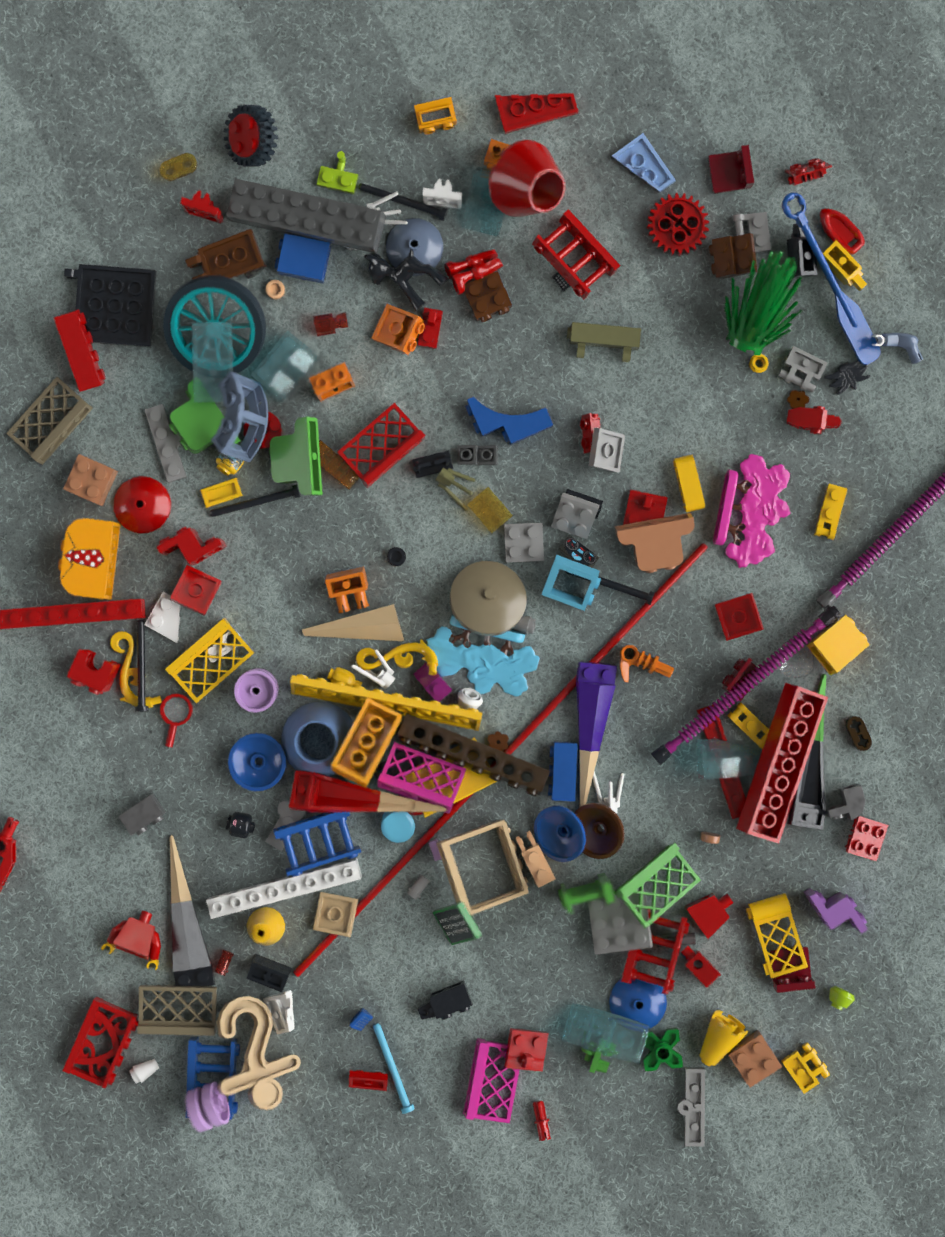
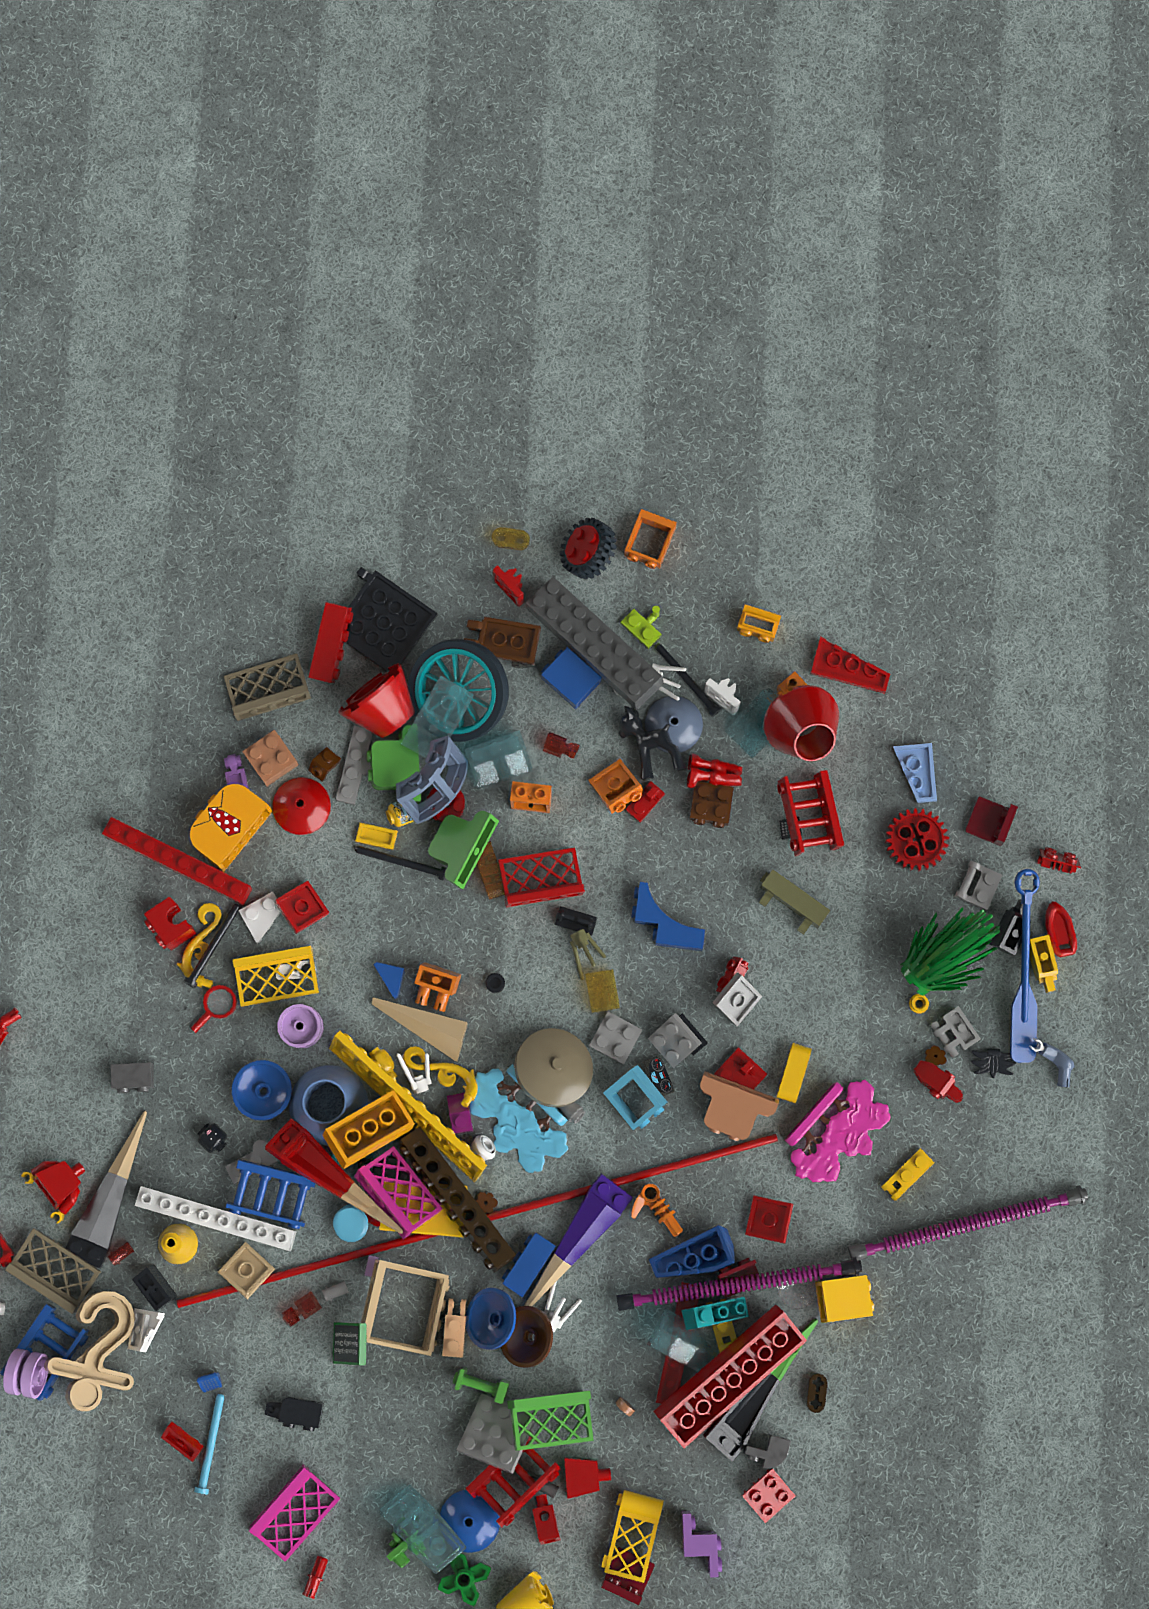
camera: 35 degrees right, 10 degrees down
(70, 512) = (236, 775): none -> medium lavender plate
(138, 457) = (324, 763): none -> reddish brown bracket
(155, 377) = (381, 703): none -> red cone
(191, 545) = (322, 866): red bracket -> none
(275, 289) = (530, 689): light nougat tile -> none
(294, 77) = (654, 521): none -> orange window
(307, 603) = (391, 976): none -> blue slope
(402, 913) = (306, 1306): none -> clear red plate
(477, 455) = (620, 936): dark grey slope -> none
(526, 1049) = (341, 1501): red hinge -> none
(623, 588) = (698, 1153): black bar -> none
(701, 678) = (700, 1254): none -> blue wedge
(732, 255) = (949, 894): reddish brown plate -> none
(740, 720) = (715, 1313): none -> teal slope

